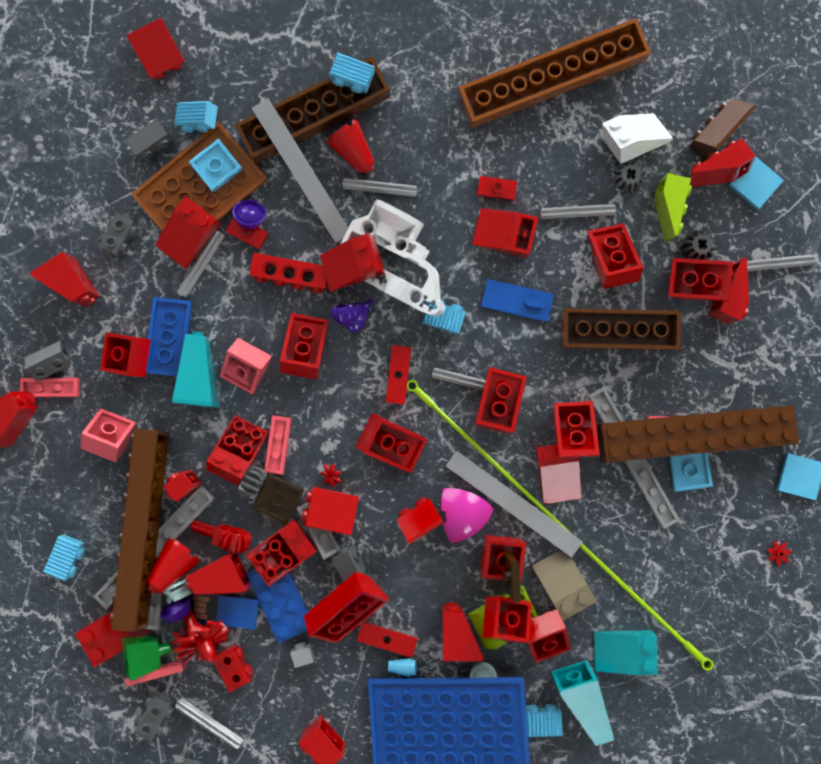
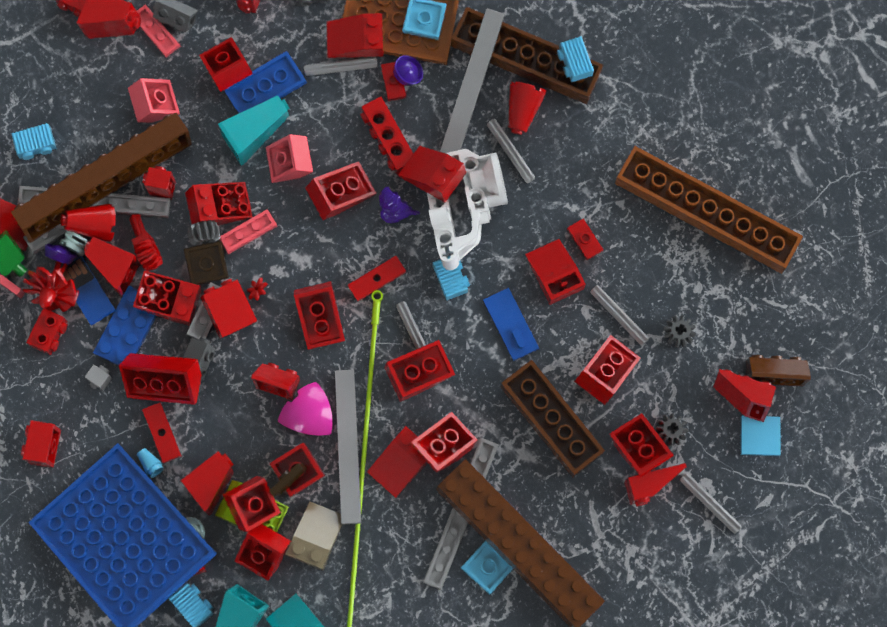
camera: 50 degrees right, 10 degrees down
(634, 135) = (714, 309): white slope -> none
(670, 203) = (689, 374): lime slope -> none

